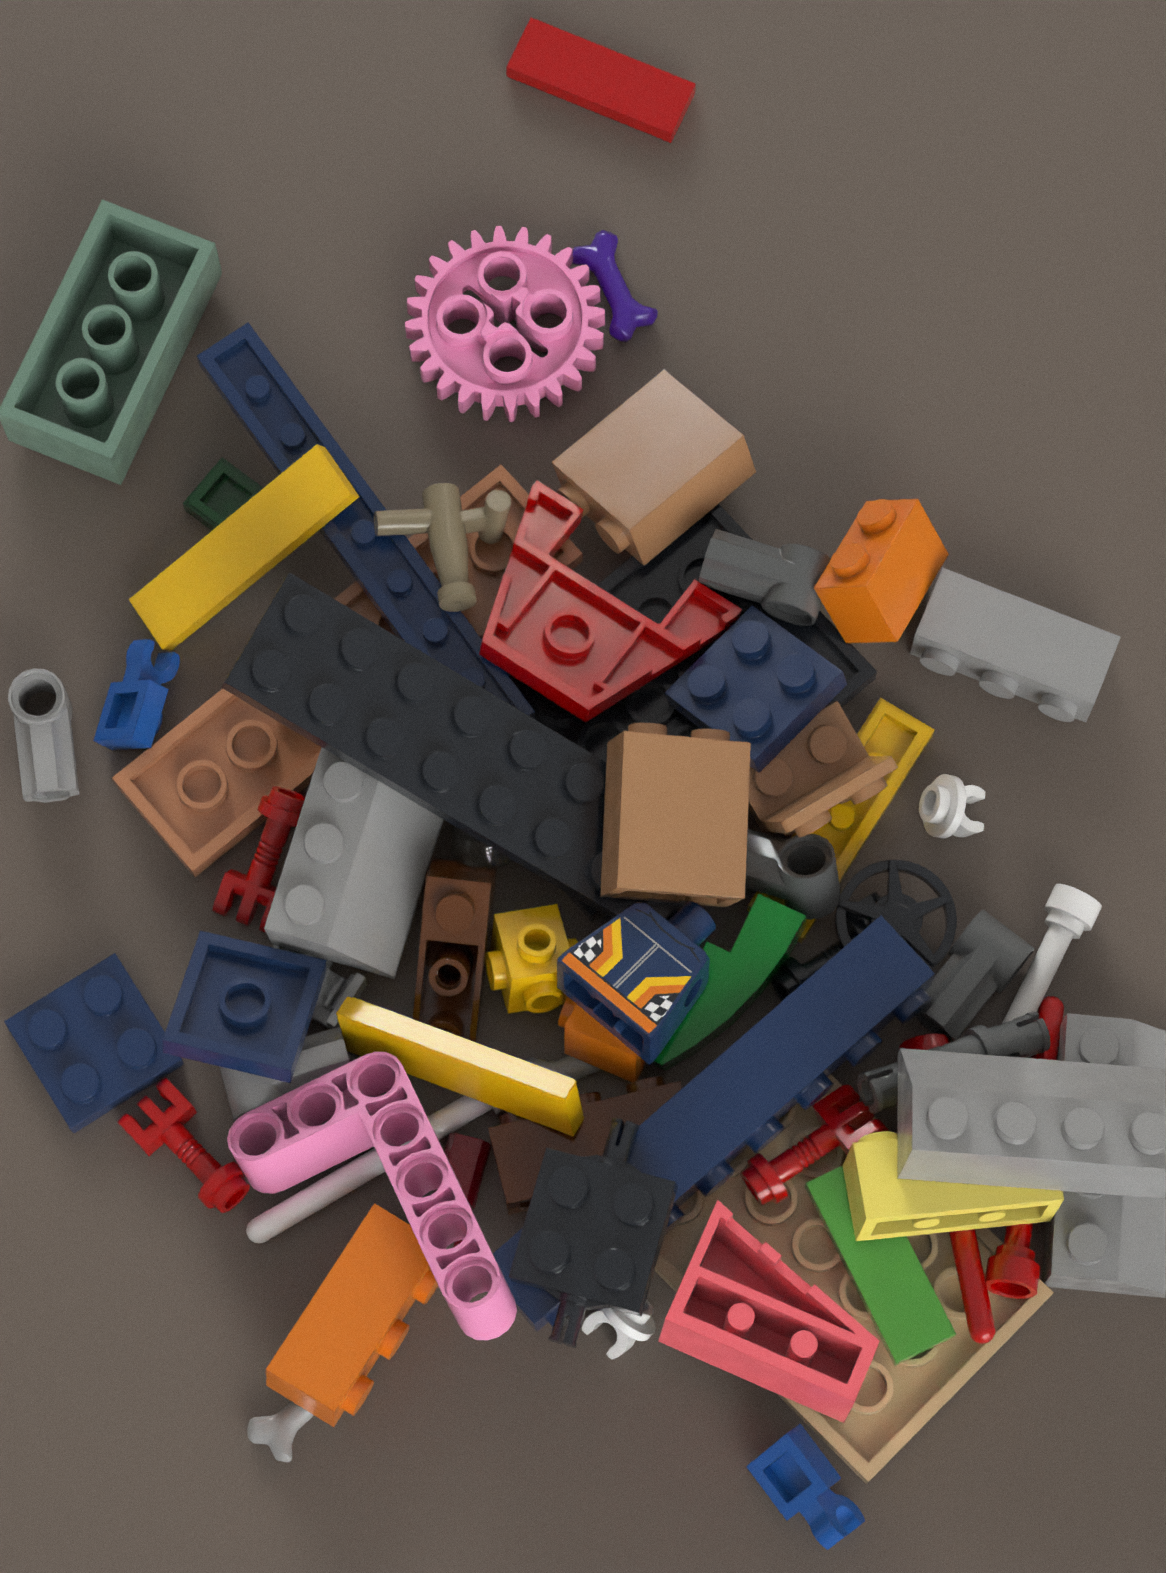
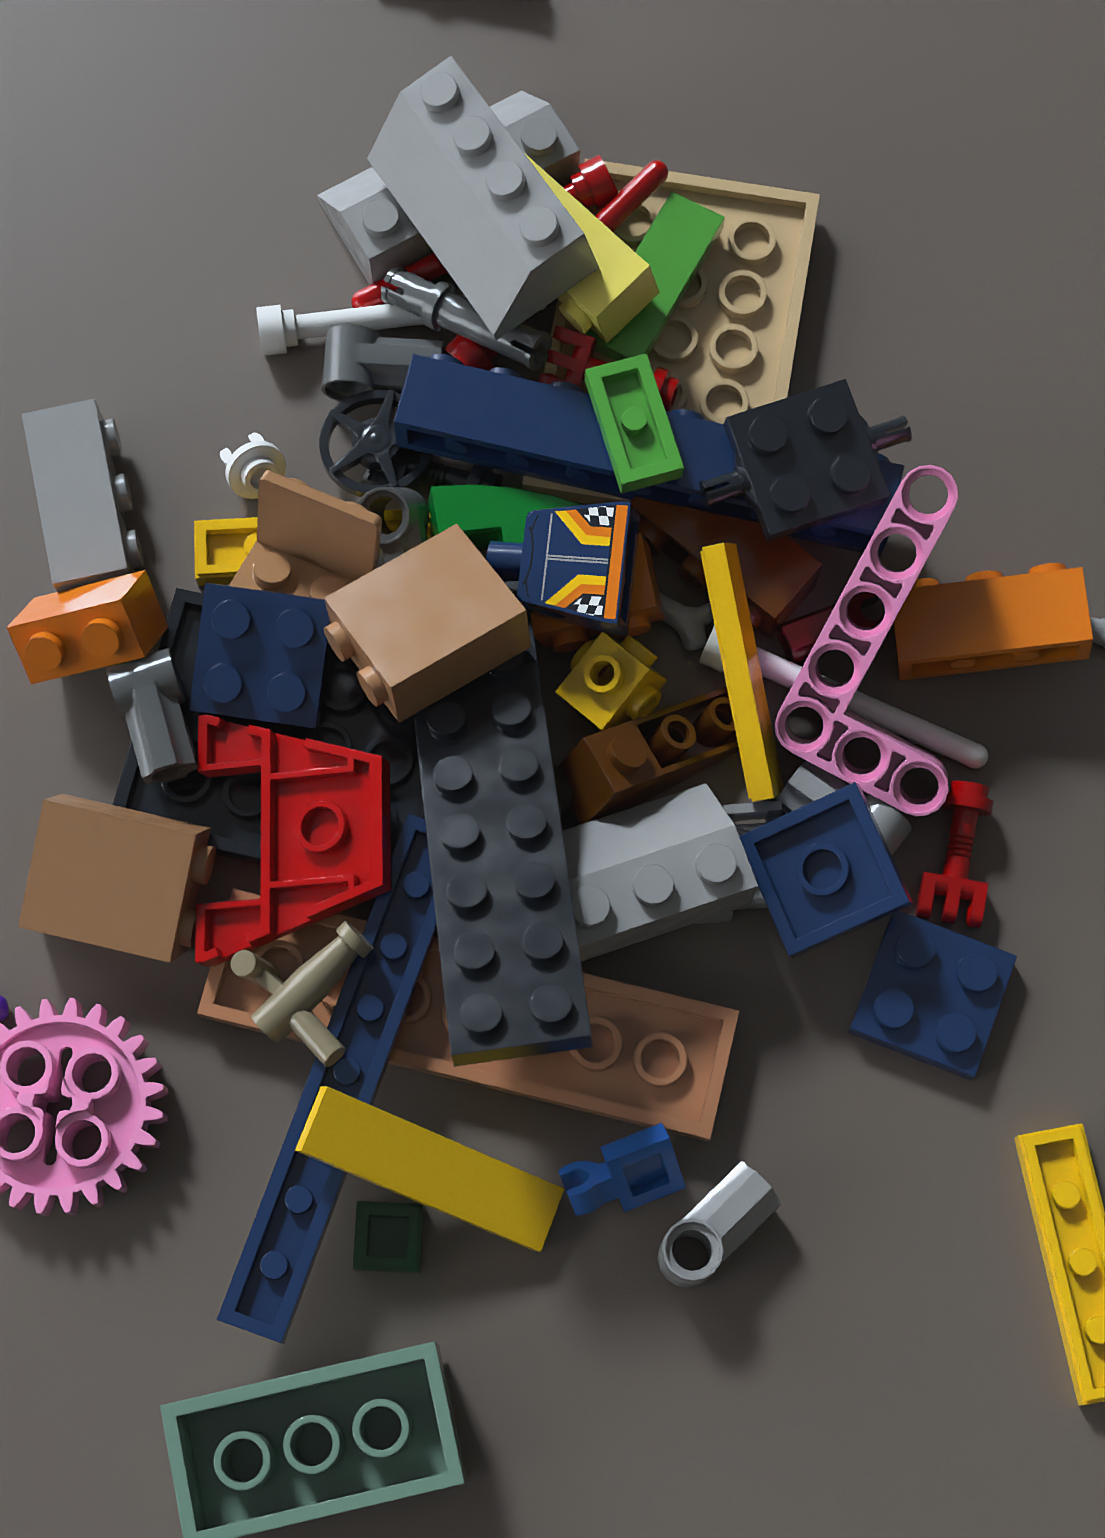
camera: 125 degrees left, 0 degrees up
(283, 812) = (637, 964): red hinge -> none
(729, 1104) = (634, 423): none -> bright green plate
(766, 1323) = (770, 312): coral wedge -> none
(800, 1480) = (852, 242): blue plate -> none

